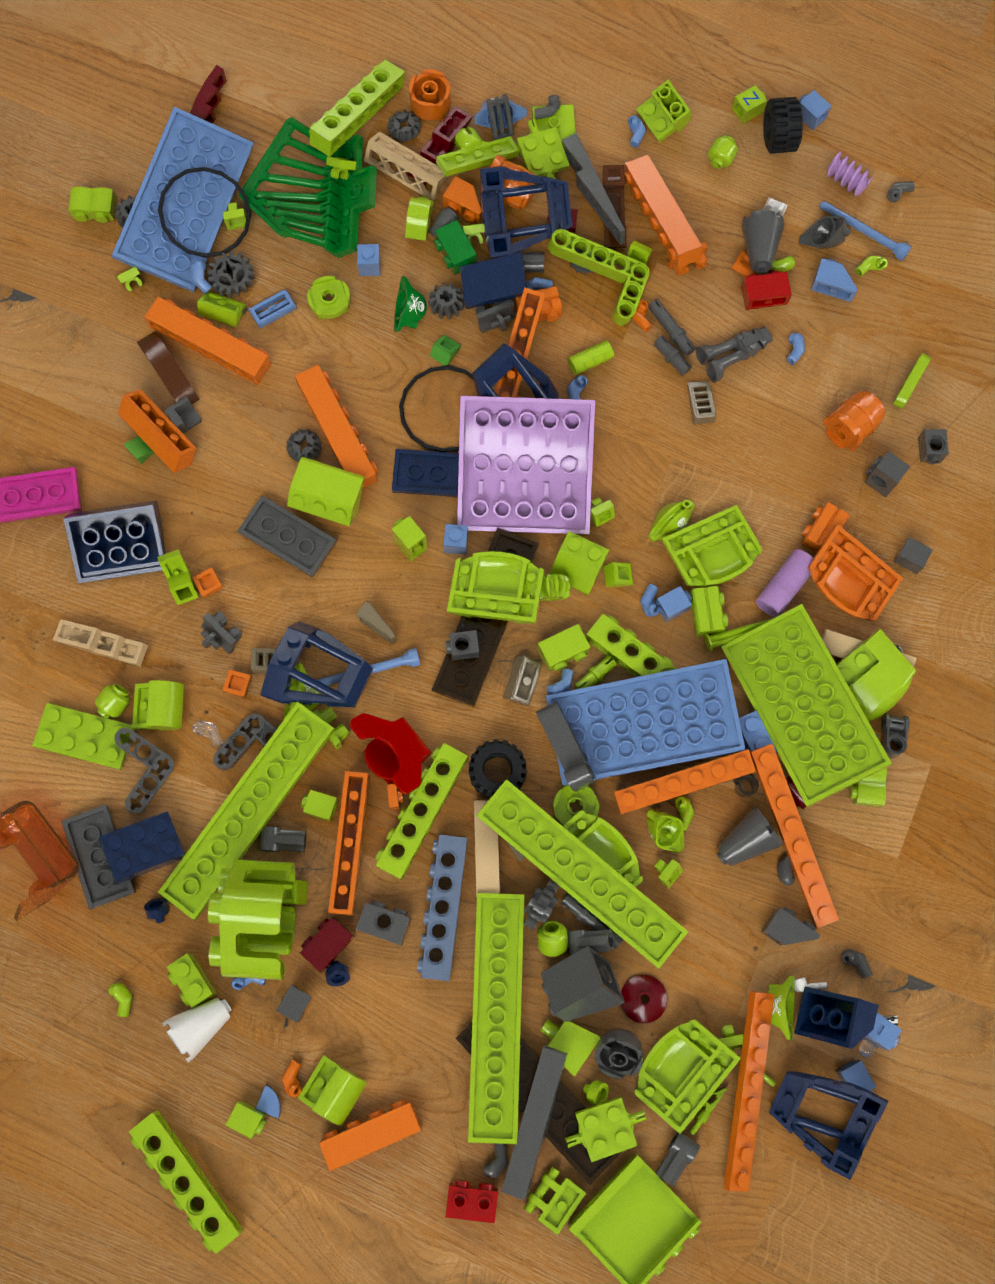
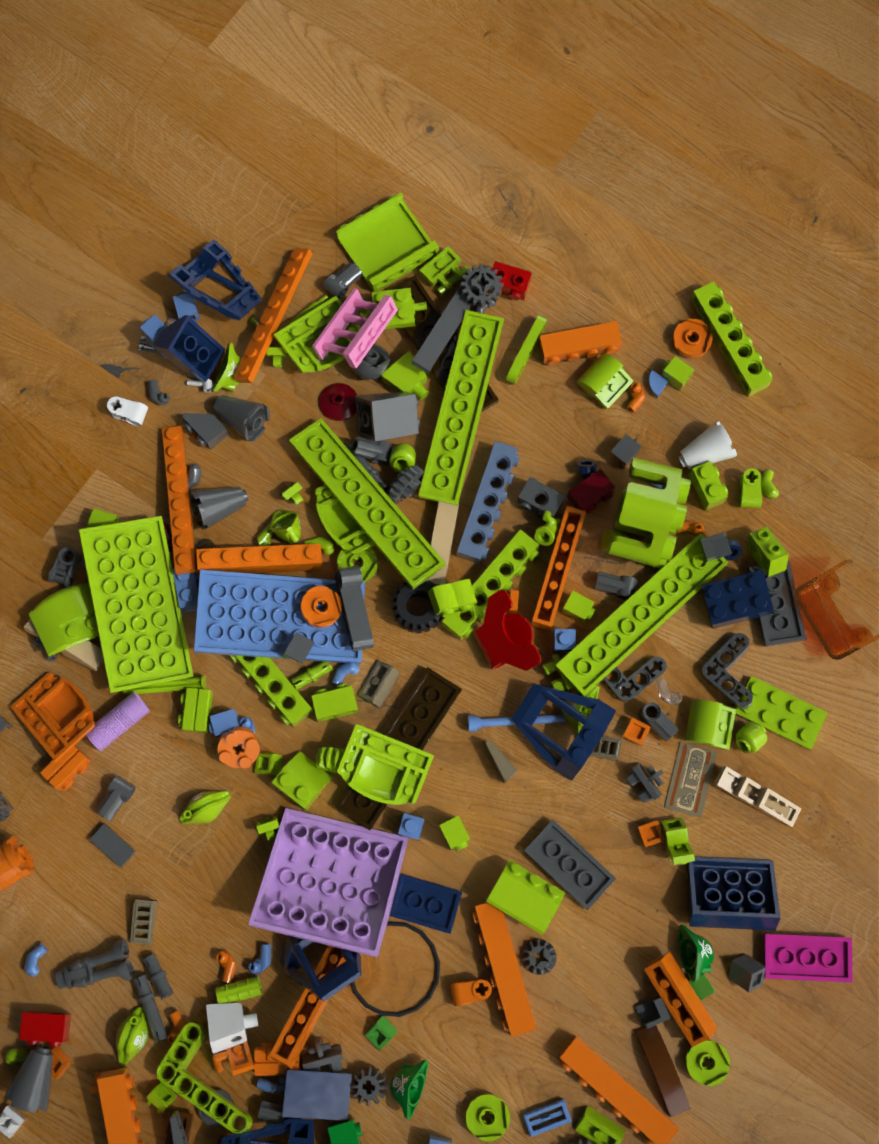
camera: 165 degrees left, 0 degrees up
(93, 469) = (747, 972): none -> dark grey panel
(113, 911) = (767, 551): none -> lime brick
(118, 372) = (720, 1063): none -> lime plate
(142, 983) = (750, 493): none -> lime piece
(147, 476) = (695, 953): none -> green hat
(173, 647) = (690, 779): none -> sticker
(173, 902) = (716, 546): none -> dark grey panel
(203, 927) = (692, 527): none -> orange arm
(214, 698) = (659, 723): none -> dark grey piece
(243, 1183) = (692, 349): none -> orange plate
(330, 763) = (564, 641): none -> medium blue brick
(366, 399) = (466, 993): none -> orange piece
(369, 881) = (546, 534): none -> lime piece
(433, 1113) = (526, 349): none -> lime beam
(460, 778) = (452, 597): none -> lime brick
(470, 638) = (418, 713): dark grey brick -> none
(506, 1193) = (489, 282): none -> dark grey gear
(579, 303) = (239, 1059): none -> orange plate
(592, 323) = (228, 1025): none -> white torso
(596, 1092) = (394, 338): lime tile -> none
(606, 728) = (326, 597): none -> orange plate
(607, 380) = (228, 964): none -> orange arm
(615, 686) = (298, 648): none -> dark grey panel
(620, 821) = (326, 544): none -> lime arm
(625, 1081) = (366, 336): none -> bright pink fence
(661, 573) = (241, 758): none -> orange plate
(682, 302) = (131, 1036): none -> lime hat
(714, 548) = (174, 767): lime slope -> none
(751, 952) = (242, 416): none -> dark grey cone
(753, 465) = (112, 845): none -> dark grey tile
(763, 513) = (118, 793): none -> dark grey piece
(881, 932) = (130, 411): none -> white piece

